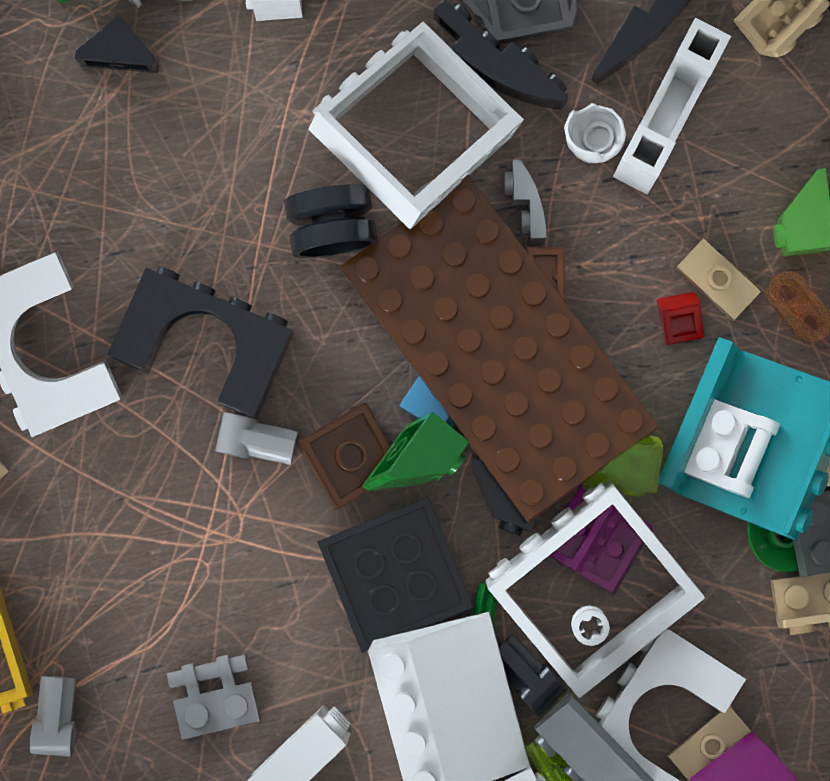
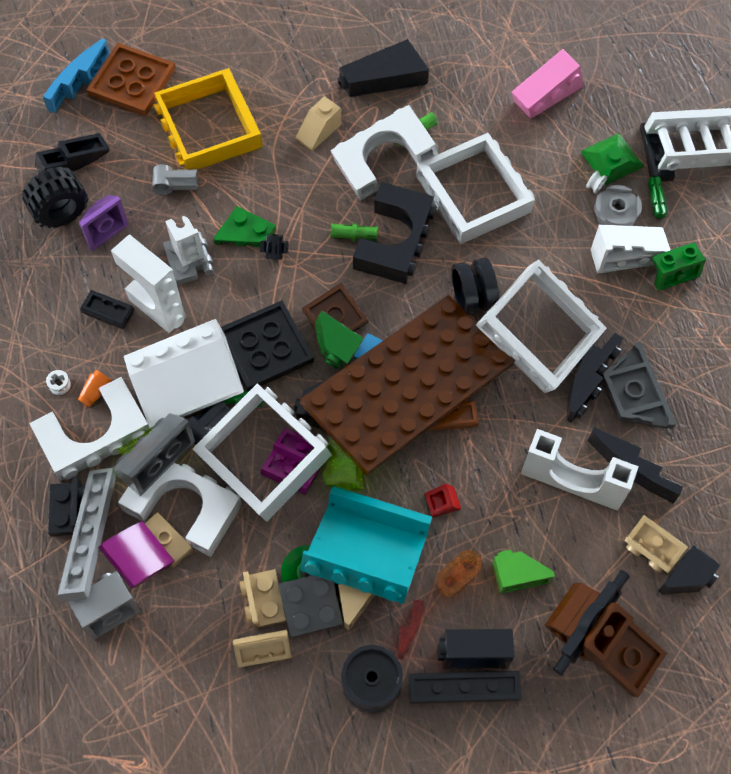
camera: 85 degrees right, 20 degrees down
(116, 49) = (560, 176): black slope -> none
(148, 253) = (467, 231): none -> white window
(165, 597) = (244, 229): none -> green wing
(190, 410) = (354, 232): none -> bright green pin
(212, 548) = (274, 246): none -> black gear
(216, 696) = (185, 241): none -> white hinge
(246, 438) = (340, 262): light grey piece -> none
(524, 193) = (511, 397): light grey slope -> none
(595, 133) = (557, 425): white hair -> none
(595, 637) = (241, 452): white bush -> none
(718, 279) = (470, 521): tan plate -> none
(720, 444) = (359, 529): white plate -> none

